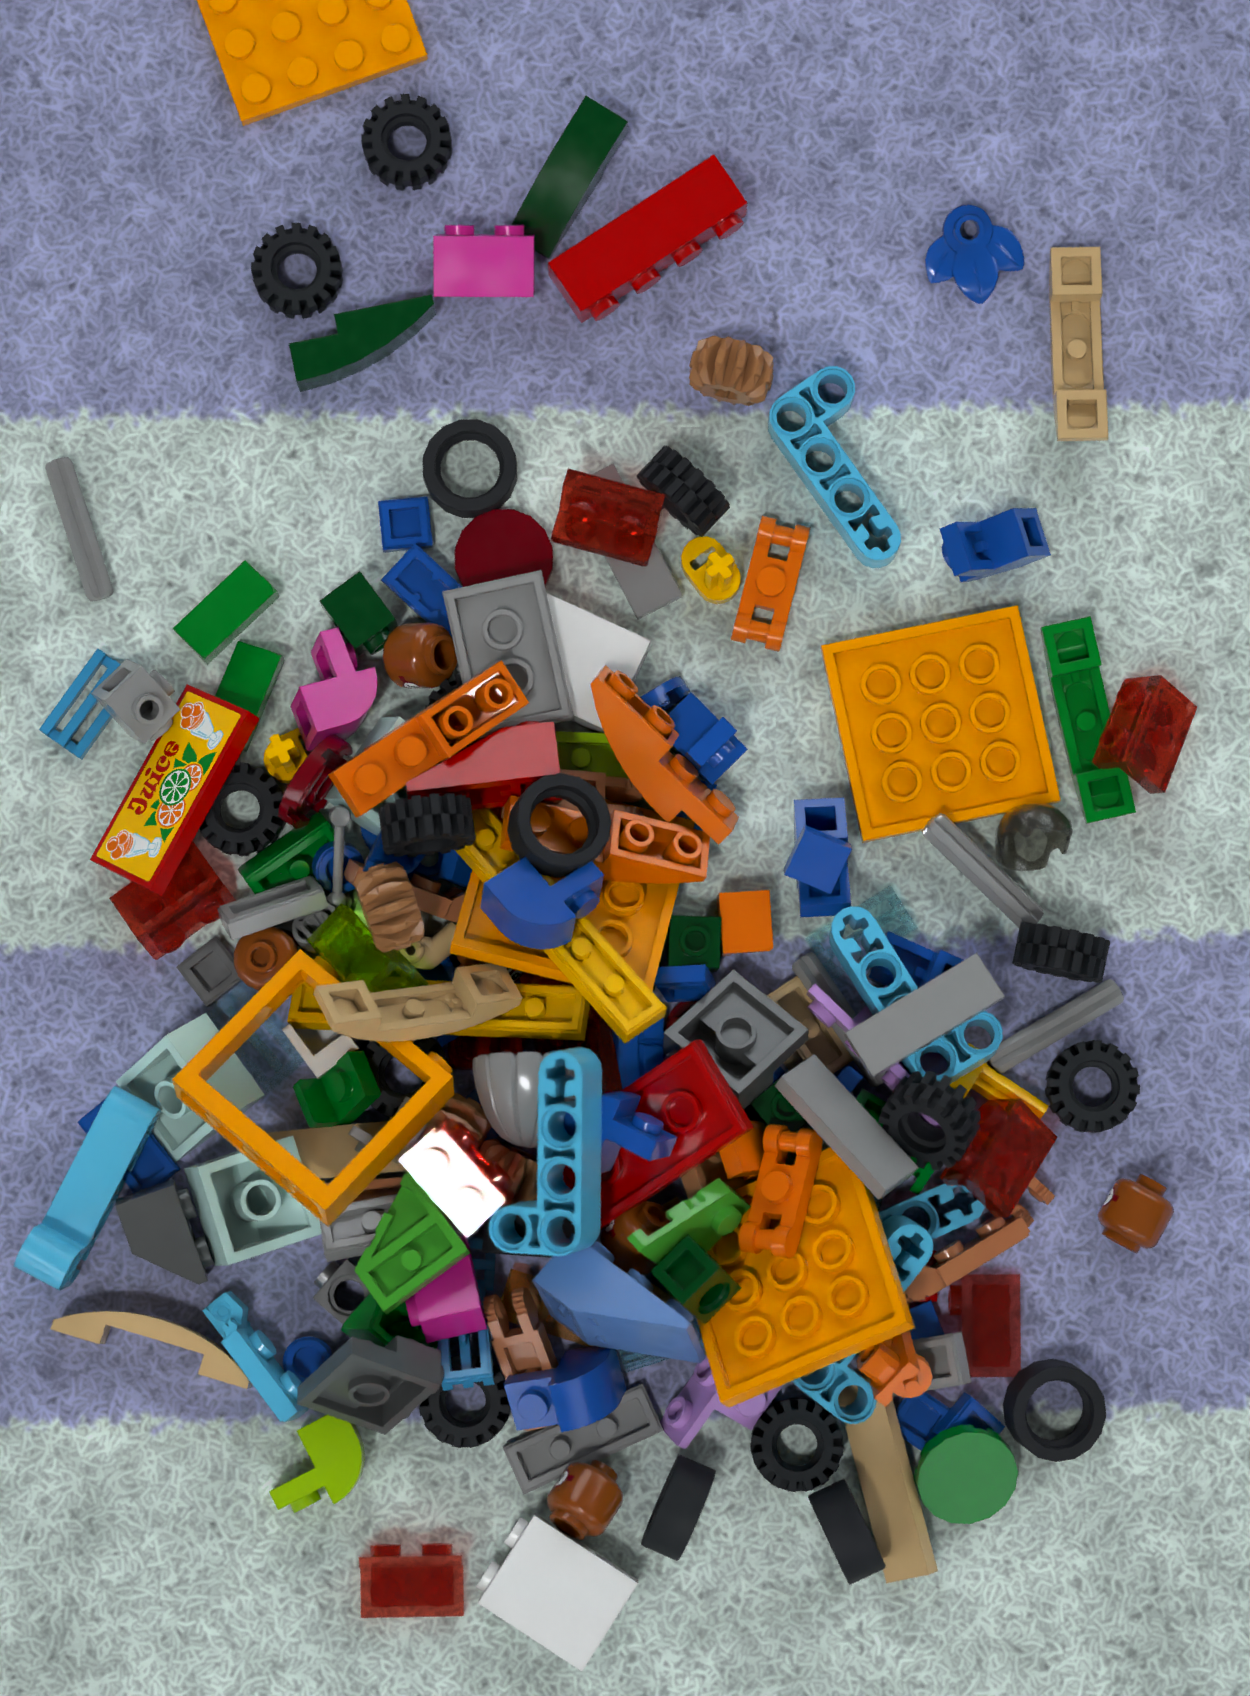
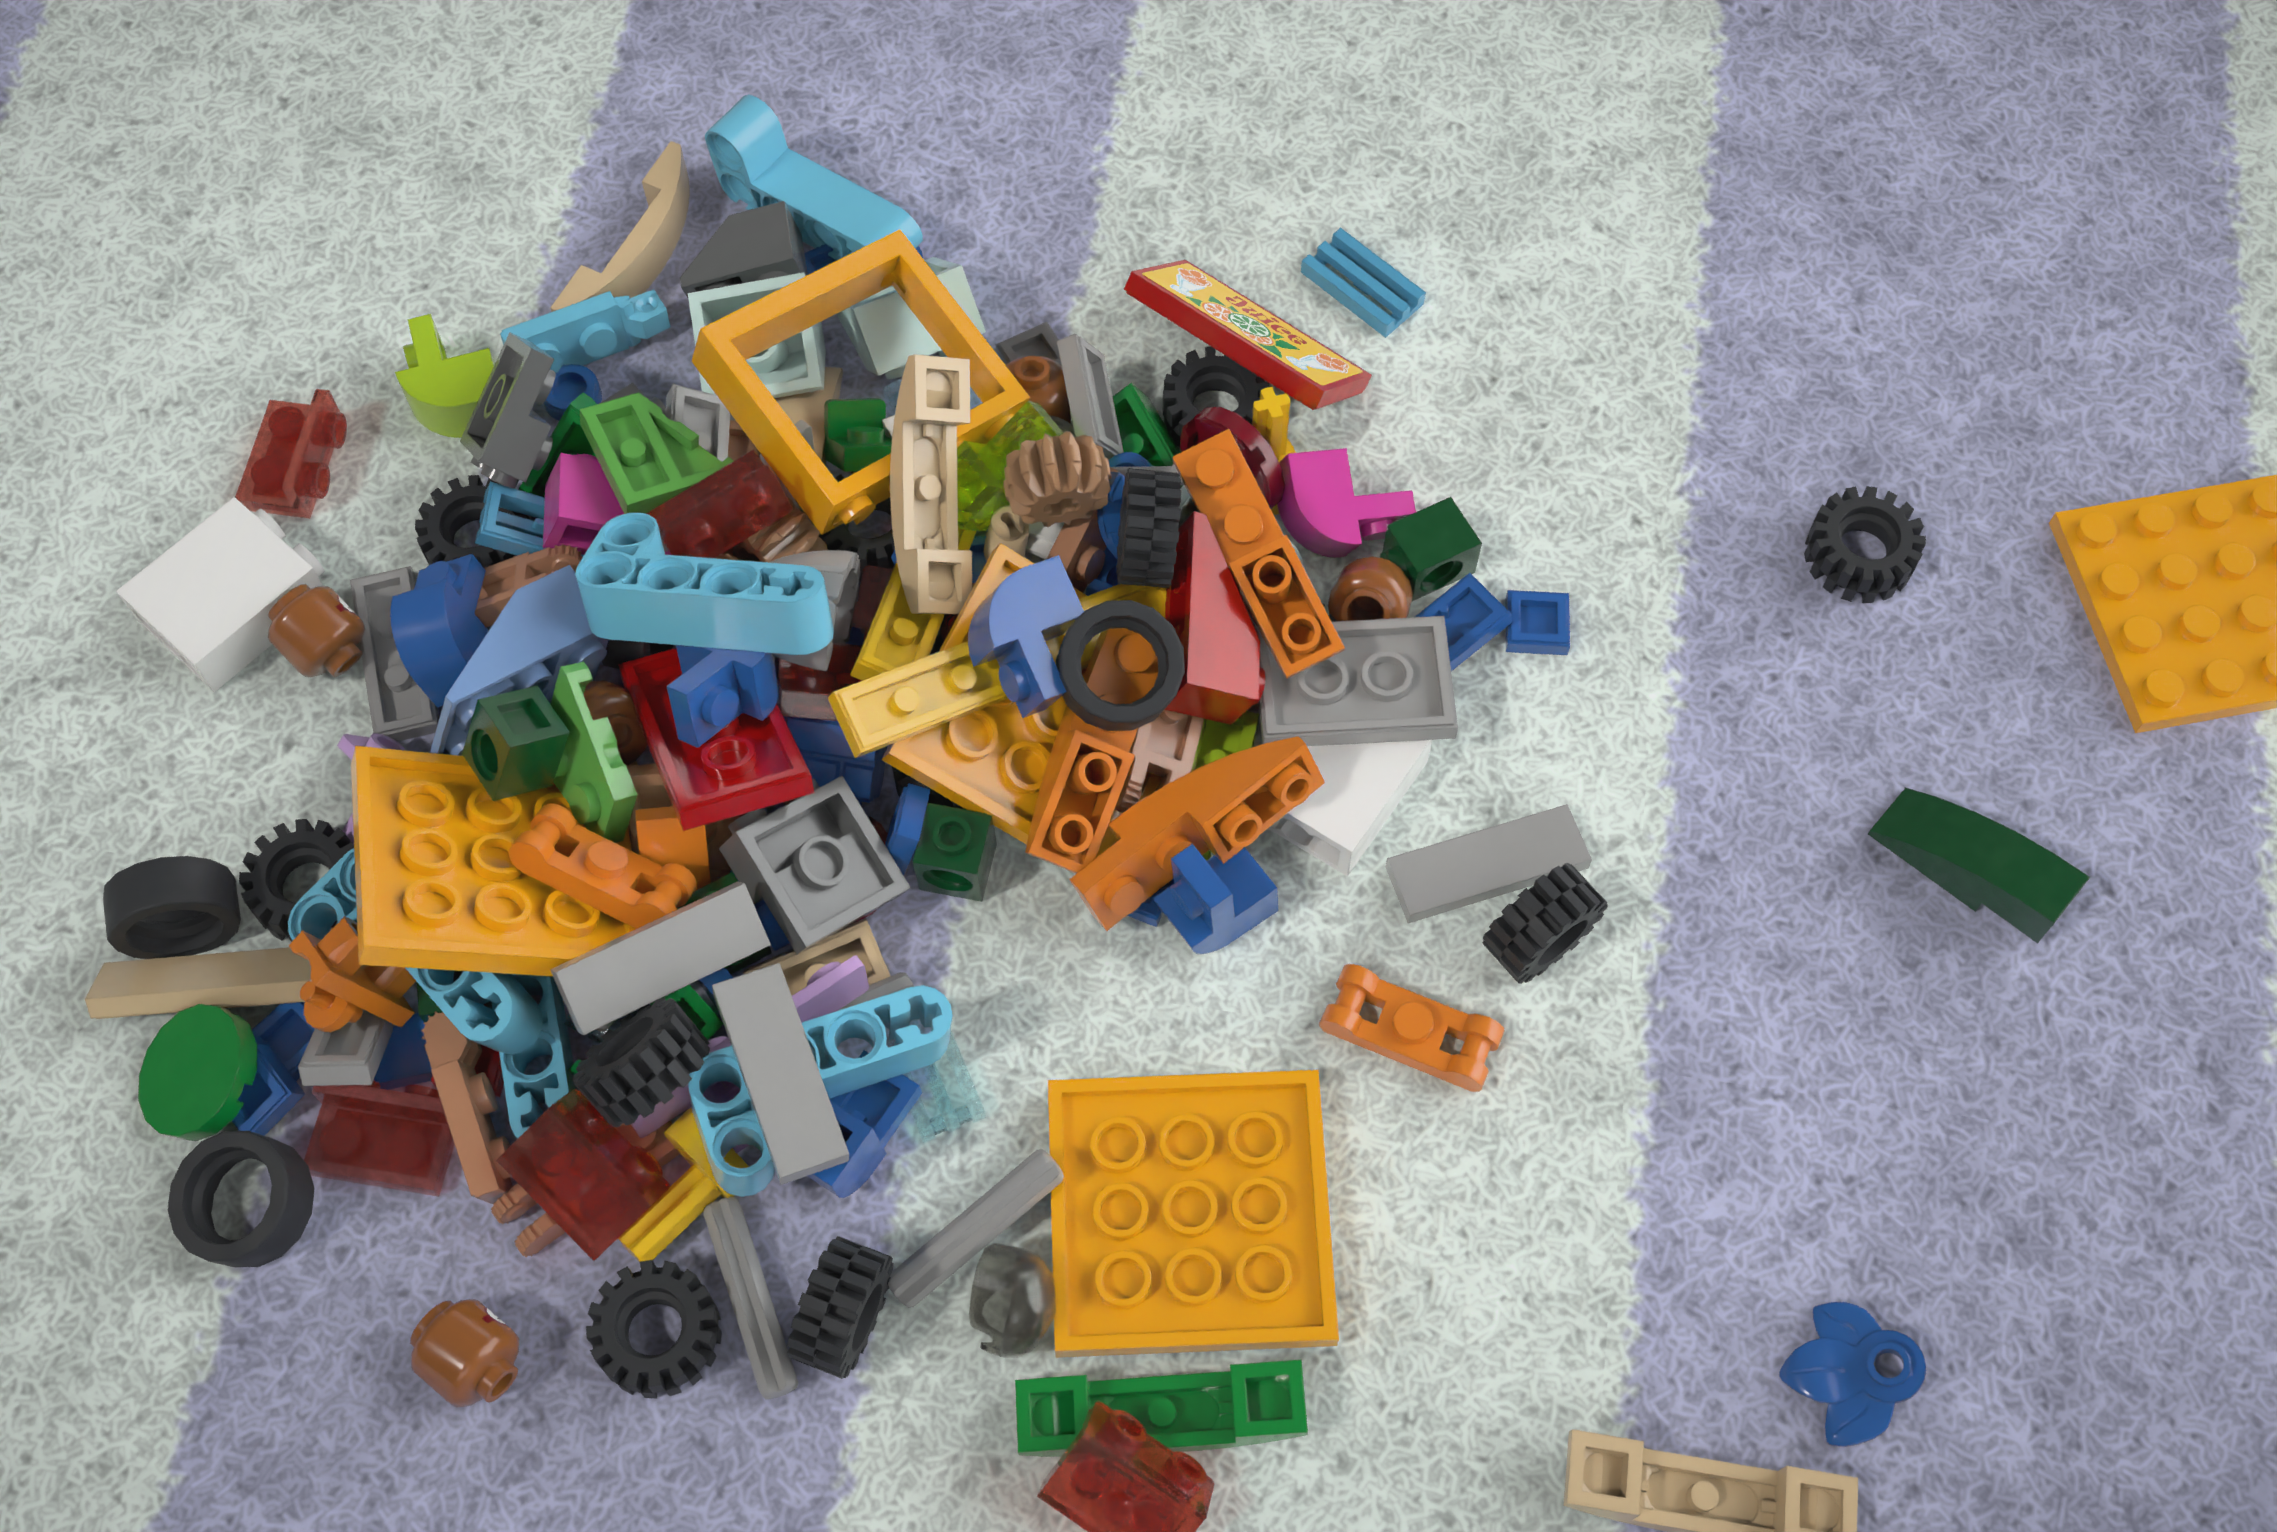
camera: 100 degrees right, 20 degrees down
(79, 529) = (1567, 296): light grey axle -> none
(138, 701) = (1355, 310): light grey brick -> none
(183, 909) = (1121, 326): clear red bracket -> none
(226, 612) = (1450, 425): green slope -> none
(250, 679) = (1369, 437): green slope -> none
(361, 341) = (1772, 595): dark green slope -> none
(399, 114) = (2044, 658): black tyre -> none
(465, 431) = (1607, 653): black tyre -> none
(483, 263) = (1864, 742): dark pink brick -> none
(502, 546) = (1497, 724): dark red tile -> none
(608, 518) = (1516, 824): clear red bracket -> none
(648, 240) = (1890, 939): red brick -> none
(663, 697) = (1270, 853): blue tile -> none
(678, 1507) = (268, 723): black tyre -> none
(716, 579) = (1425, 961): yellow piece -> none
(731, 370) = (1704, 1009): medium nougat gear -> none
(745, 922) = (971, 914): orange panel -> none
(817, 859) = (1025, 991): blue tile -> none
(830, 818) = (1041, 1026): blue brick -> none
(843, 474) = (1551, 1135): medium azure beam -> none
(994, 544) = (1428, 1315): blue brick -> none

